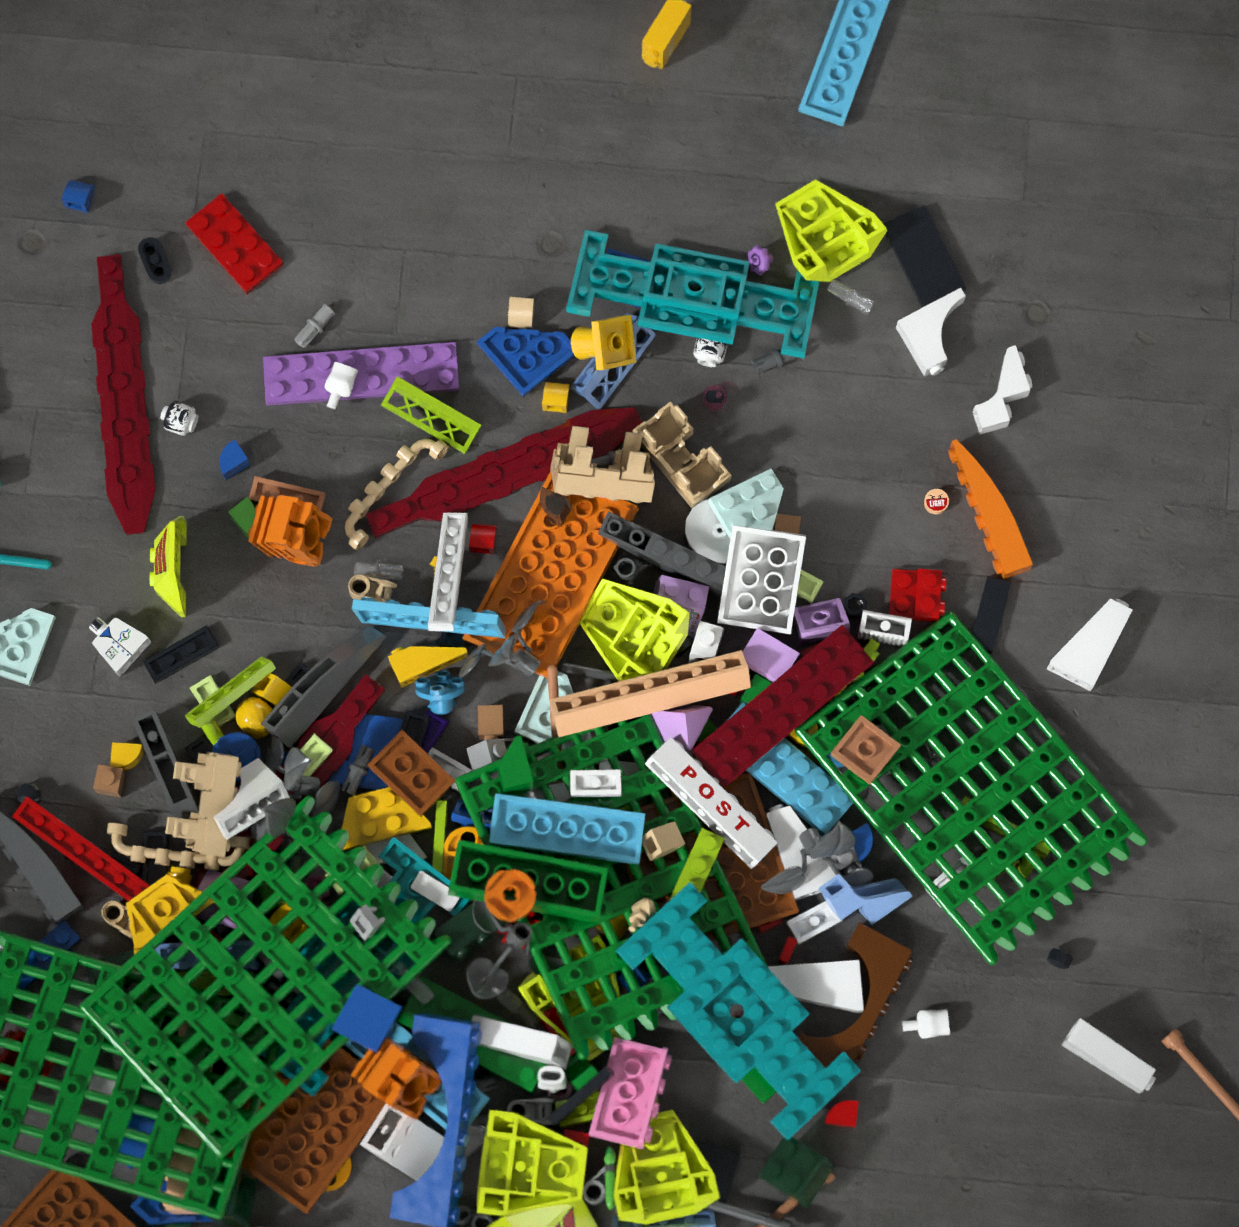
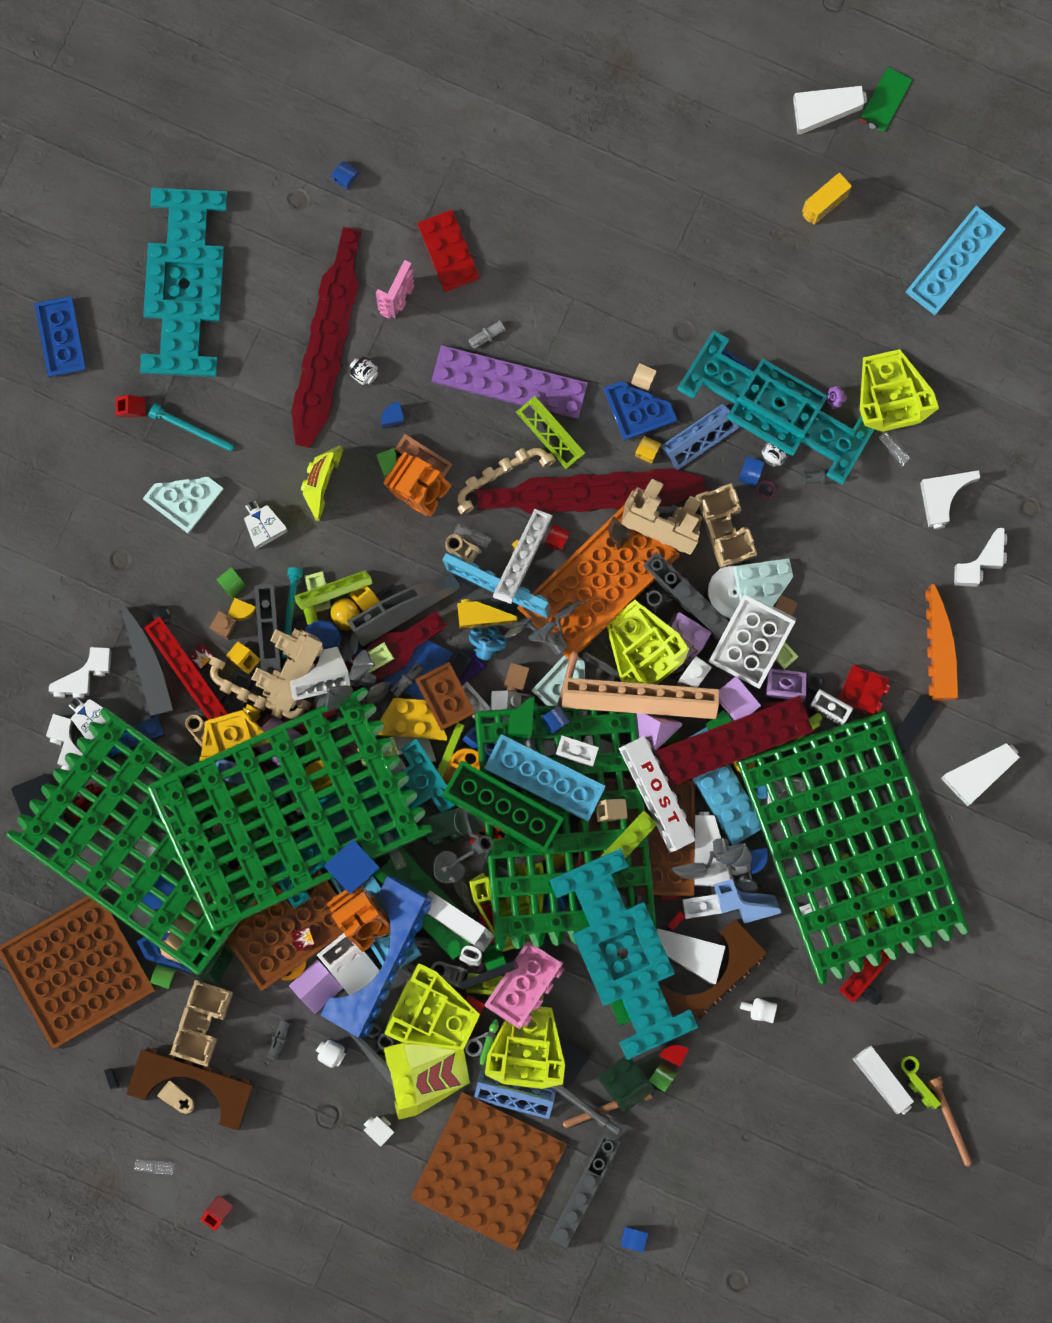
camera: 15 degrees right, 5 degrees up
(94, 829) = (200, 656): none -> tile
(102, 726) = (231, 583): none -> bright green brick
(147, 812) = (243, 657): none -> yellow brick
(156, 261) = (385, 245): black plate -> none
(178, 691) = (294, 576): none -> teal piece
(181, 654) = (306, 548): black tile -> none
(186, 320) = (391, 303): none -> bright pink bracket
(337, 1130) = (303, 939): none -> tile
(340, 383) = (491, 385): white piece -> none
(366, 922) = (374, 796): light grey tile -> none
(372, 1185) = (315, 986): none -> lavender slope
(434, 891) = (432, 789): white sticker -> none
(508, 880) = (474, 812): orange plate -> none
(555, 754) = (555, 719): none -> blue brick
(608, 341) = (700, 421): yellow plant -> none
(642, 912) = (578, 858): tan piece -> none
(689, 381) = (751, 471): none -> blue brick
(838, 1148) = (662, 1077): none -> bright green brick
(865, 750) = (783, 794): nougat plate -> none
(923, 256) = (960, 436): black tile -> none
(936, 501) = (903, 625): tile -> none
(1037, 946) = (860, 981): none -> red plate
(1151, 1048) = (917, 1085): none -> lime plate

